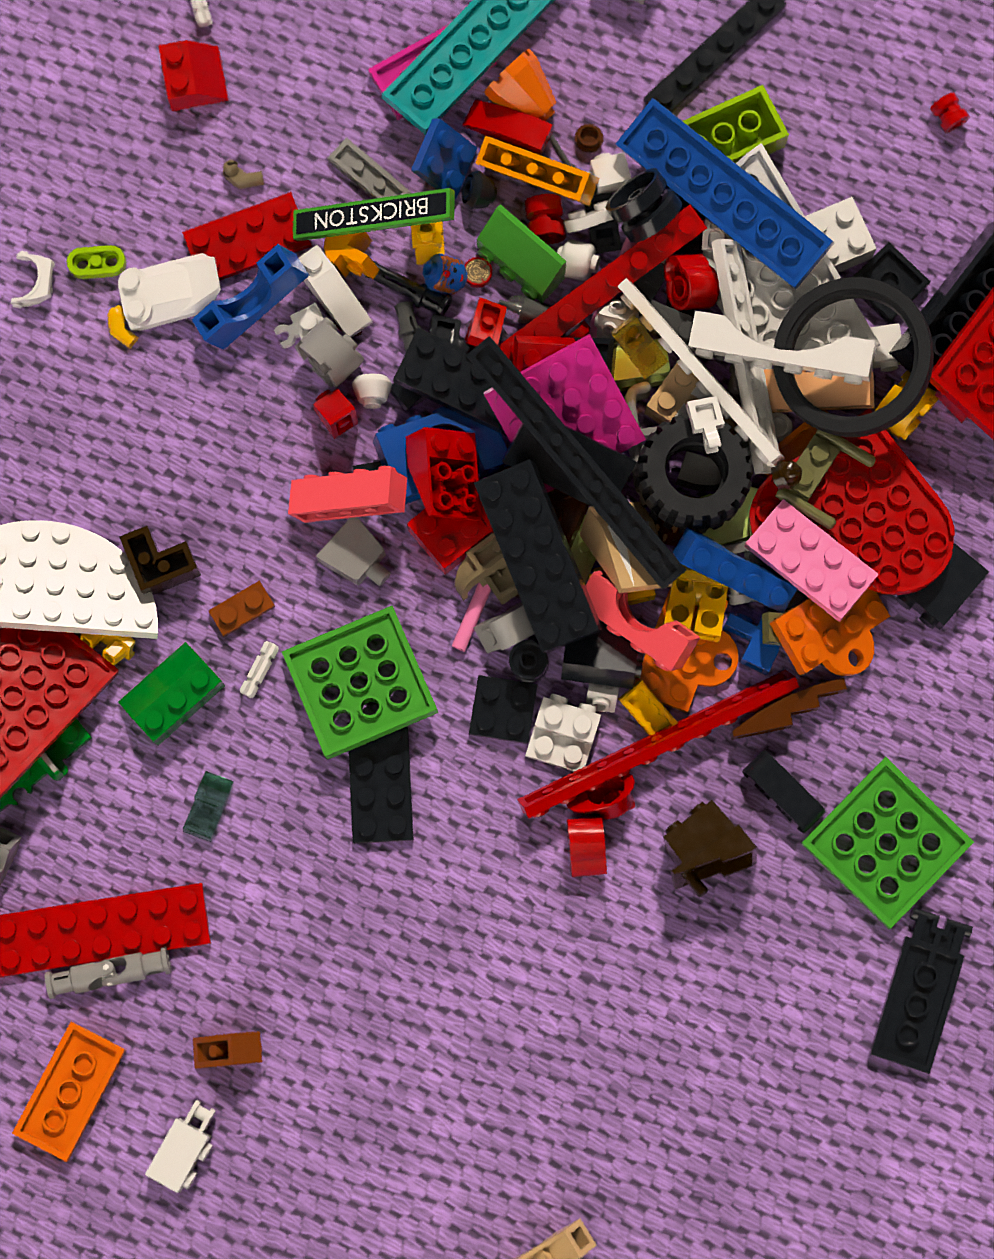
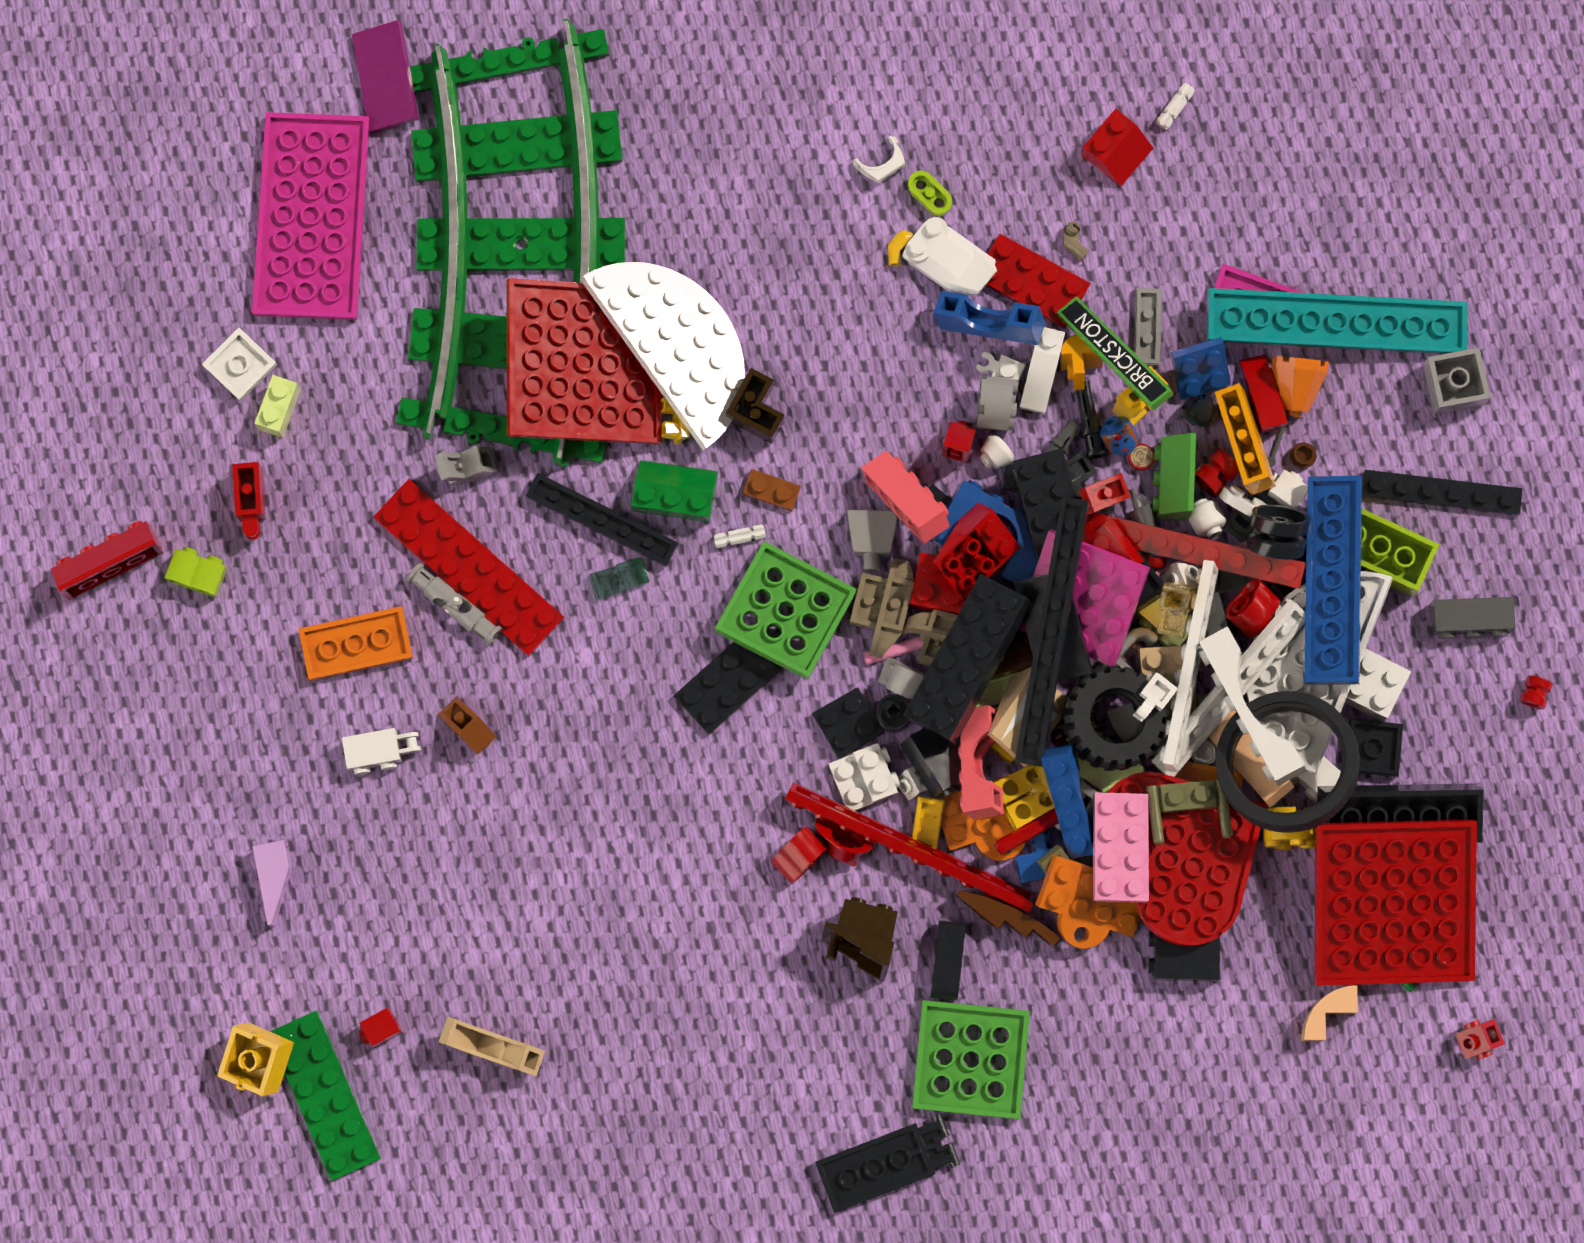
camera: 50 degrees right, 0 degrees up
(142, 778) = (602, 520): none -> black plate
(425, 593) = (883, 605): none -> dark tan plate
(730, 630) = (1026, 832): none -> red axle
(786, 474) = (1165, 781): dark brown plate -> none
(843, 111) = (1472, 617): none -> dark grey brick

